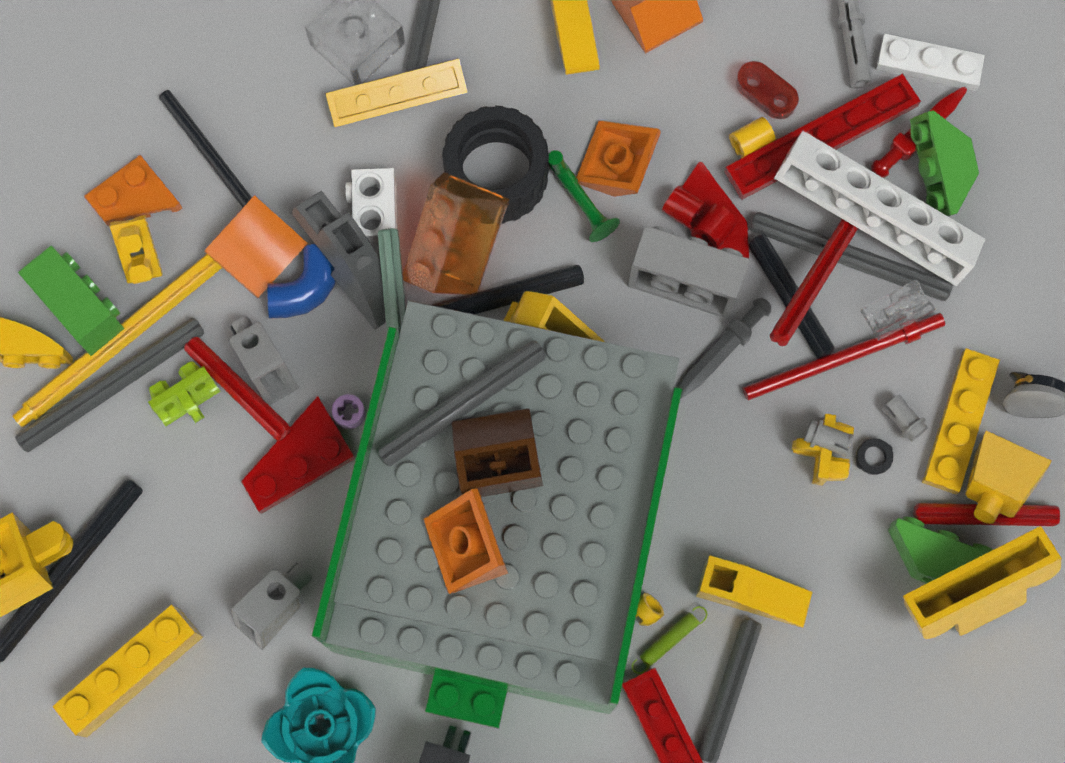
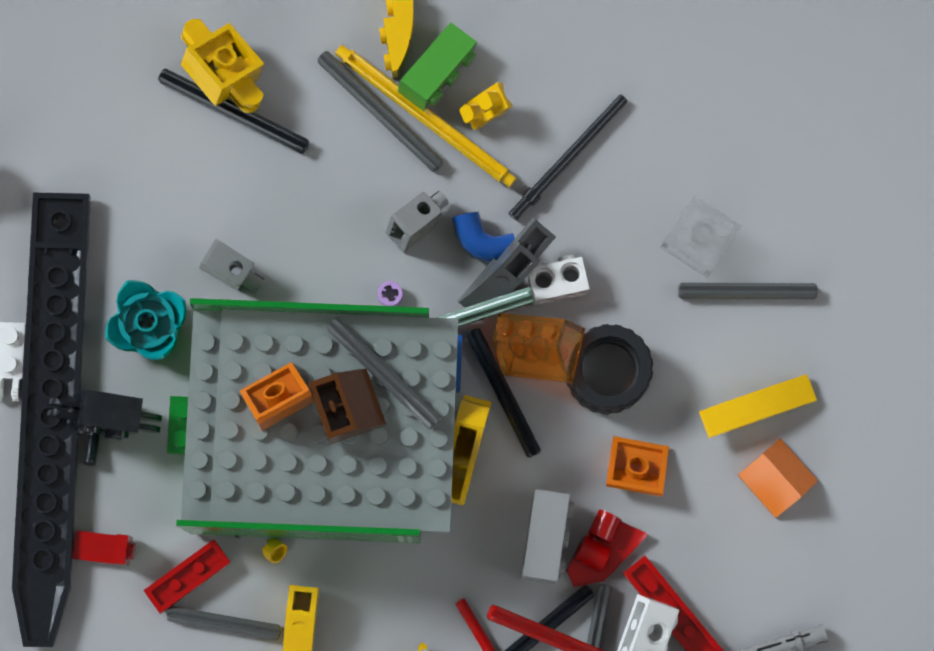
camera: 75 degrees right, 5 degrees up
(127, 672) = (164, 174): yellow brick -> none
(131, 193) = (535, 92): orange wing -> none
(175, 401) = (377, 169): lime hips -> none
(237, 388) = (391, 206): red axle -> none
(255, 246) = (506, 196): orange slope -> none
(298, 460) = (346, 264): red wing -> none
(396, 92) = (658, 279): yellow plate -> none
(600, 225) = (577, 461): green piece -> none
(669, 639) = (255, 571): lime piece -> none
(736, 333) = (508, 587): dark grey sword -> none
(752, 137) = (676, 573): yellow piece -> none
(770, 88) = (720, 580): clear red plate -> none

